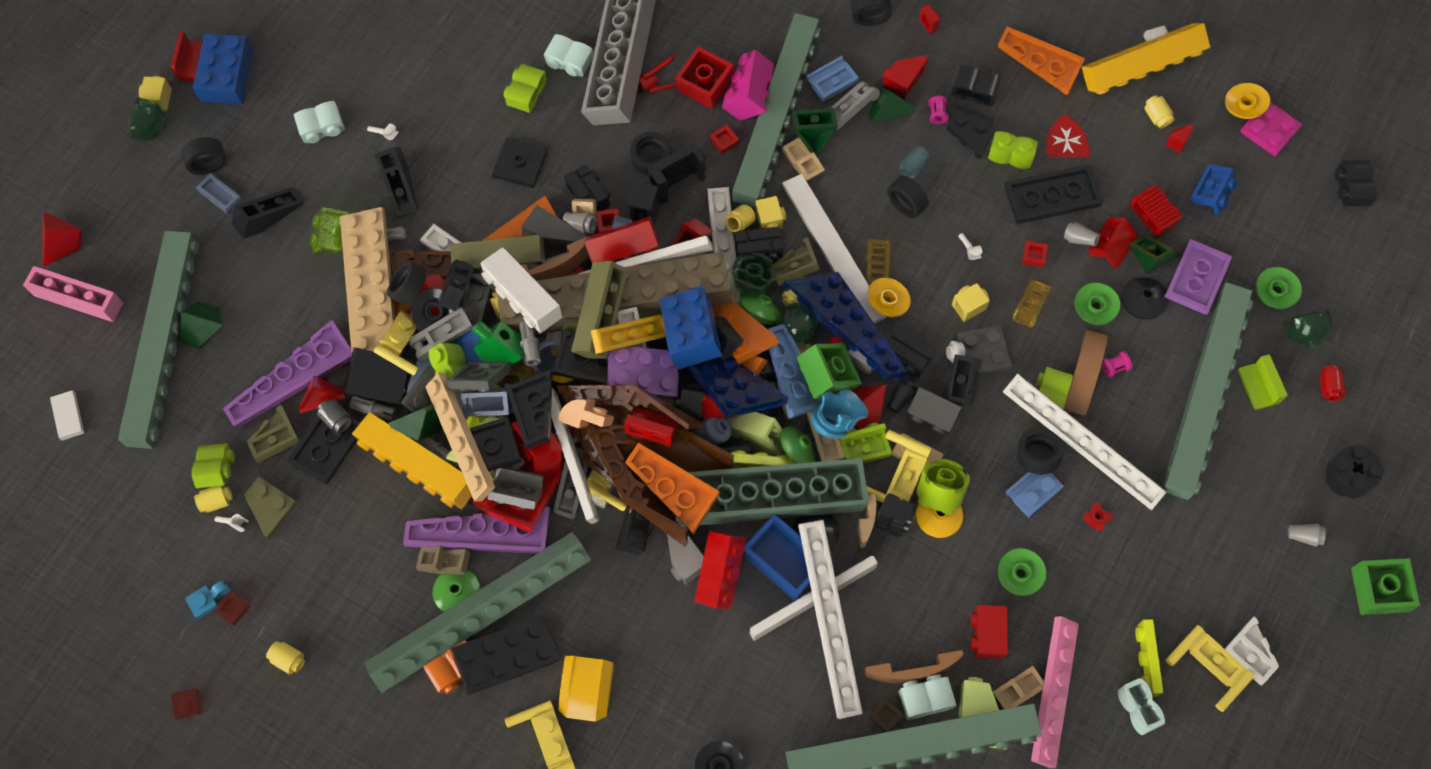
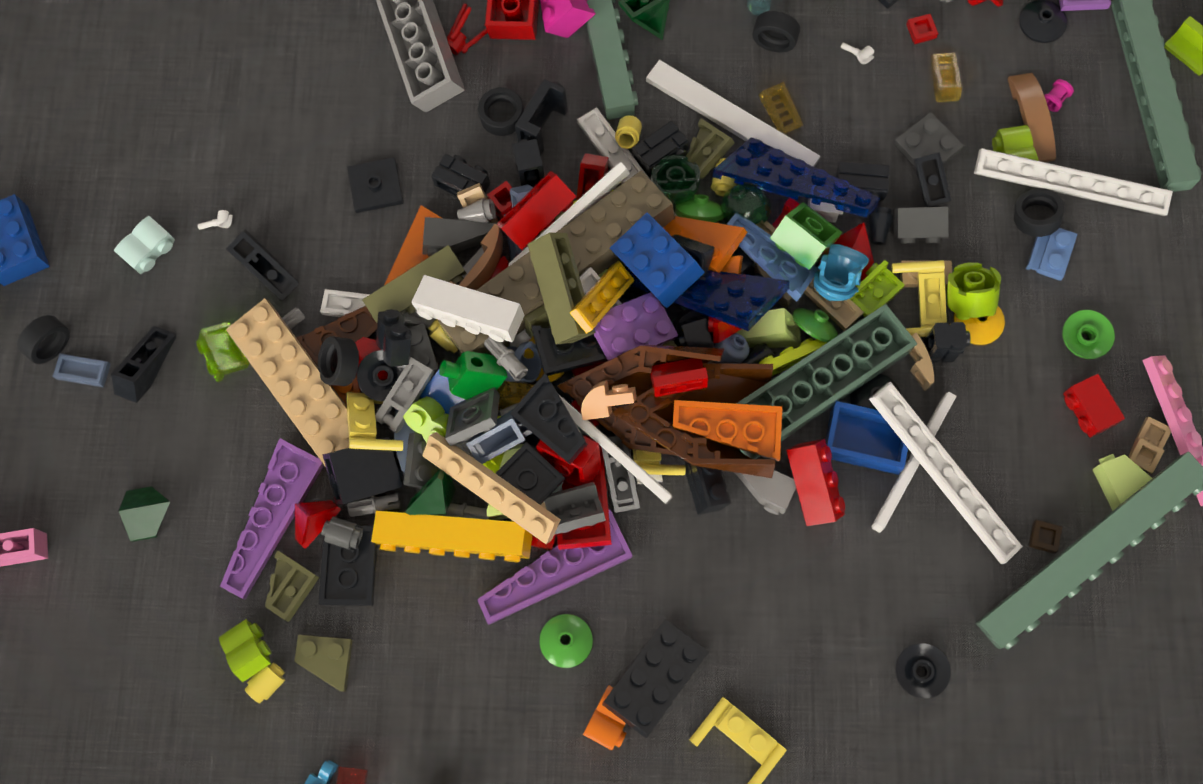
camera: 25 degrees left, 5 degrees up
(67, 415) = (56, 679): white tile -> none
(158, 341) = (109, 553): sand green brick -> none
(235, 521) = (301, 694): white hand -> none
(442, 561) = (537, 618): dark tan slope -> none
(476, 612) = (602, 652): sand green brick -> none
(525, 88) = (337, 107): lime brick -> none
(568, 55) = (362, 54): light aqua brick -> none
(585, 688) = (750, 667): yellow slope -> none
(724, 139) = (565, 62): red plate -> none
(769, 213) = (652, 113): light yellow brick -> none
(802, 160) = (651, 46): tan slope -> none
(884, 672) = (1067, 459): medium nougat slope -> none
(891, 291) = (813, 137): yellow dish -> none
(927, 697) = (1073, 498): light aqua brick -> none
(954, 348) = (904, 158): white plate -> none
(970, 301) = (890, 103): light yellow brick -> none
(1091, 518) = (1117, 249): red plate -> none
(1099, 295) = (1009, 39): bright green dish -> none

